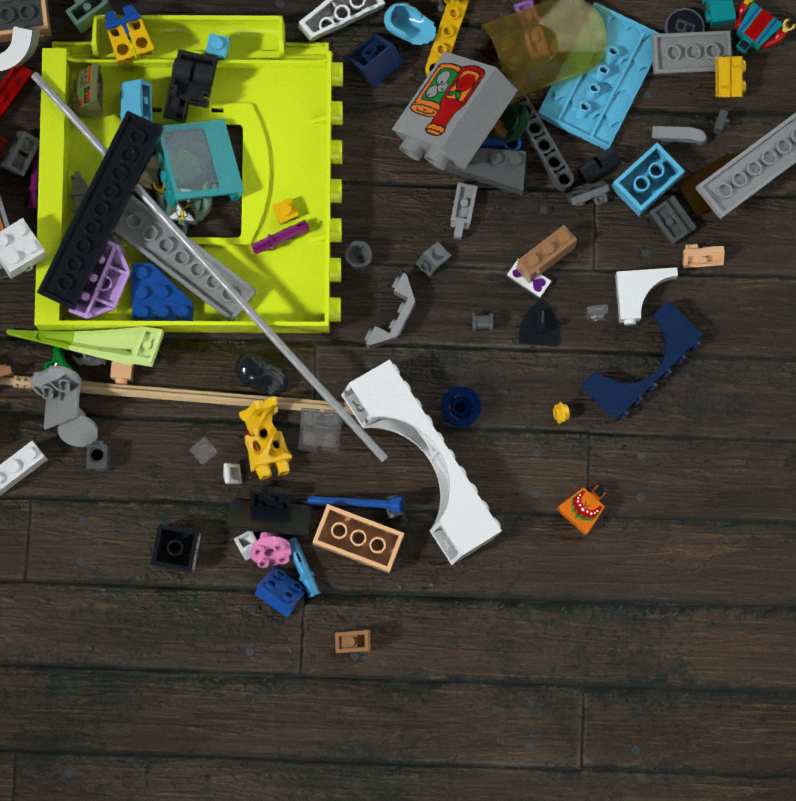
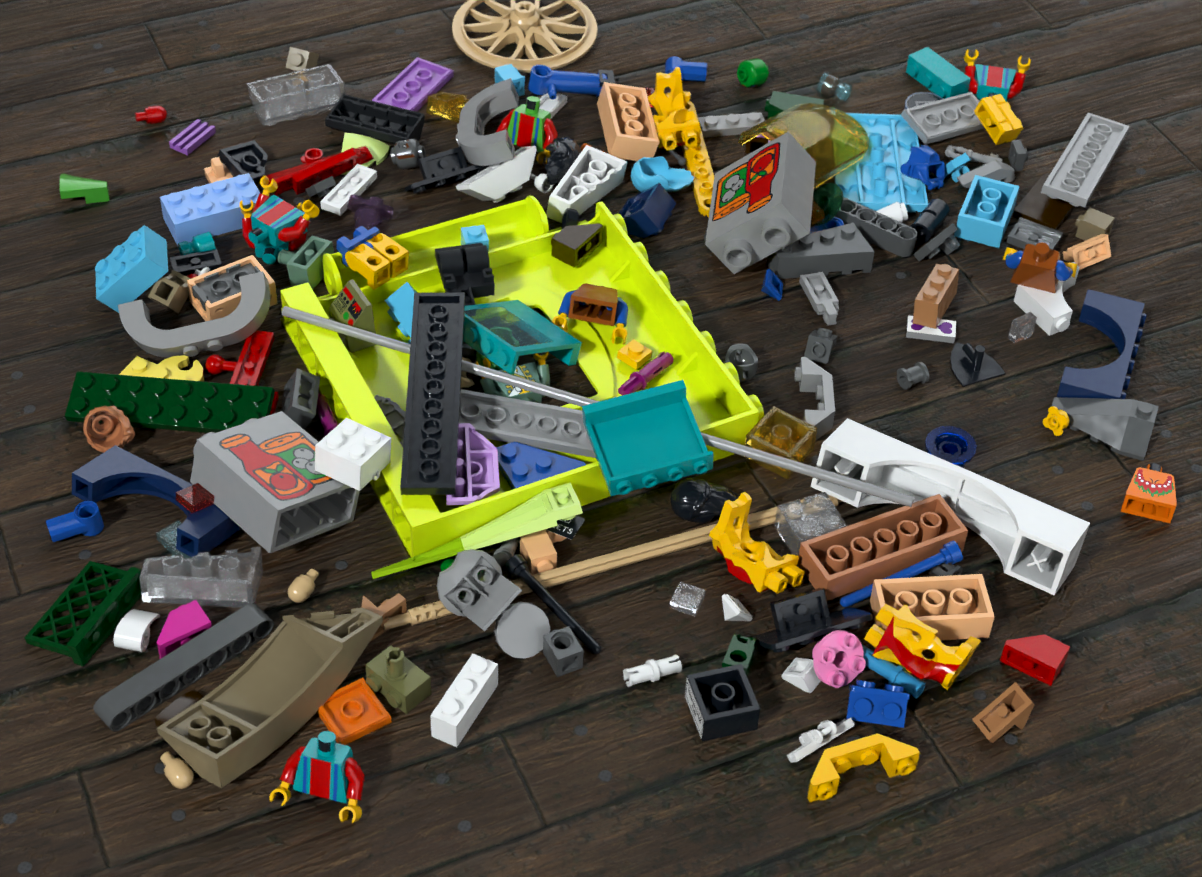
camera: 30 degrees left, 35 degrees down
(99, 379) = (518, 568): none -> black piece
(149, 498) = (652, 670): none -> white pin
(209, 516) = (740, 652): none -> dark green leg
(211, 632) = (894, 756): none -> yellow slope
(228, 324) = (646, 438): none -> teal panel
(236, 600) = (814, 739): none -> white piece
(275, 155) = (594, 305): none -> dark orange torso
(298, 77) = (576, 242): none -> slope
(307, 48) = (570, 217): none -> black tile
(321, 573) = (904, 648): none -> yellow hips
(341, 346) = (782, 436): none -> clear yellow brick
(356, 472) = (879, 546): none -> nougat brick
(409, 607) = (1036, 656): none -> red slope
(433, 181) = (772, 285): none -> blue slope
(572, 144) = (895, 211): none -> white cone
(601, 433) = (1117, 422): none -> dark grey wedge
(630, 102) = (921, 162): none -> blue helmet
(632, 273) = (1038, 267): none -> dark orange torso
(660, 111) = (957, 166): none -> medium azure tile
(683, 102) = (977, 157): none -> light grey piece
(728, 230) = (1093, 224): none -> dark tan brick

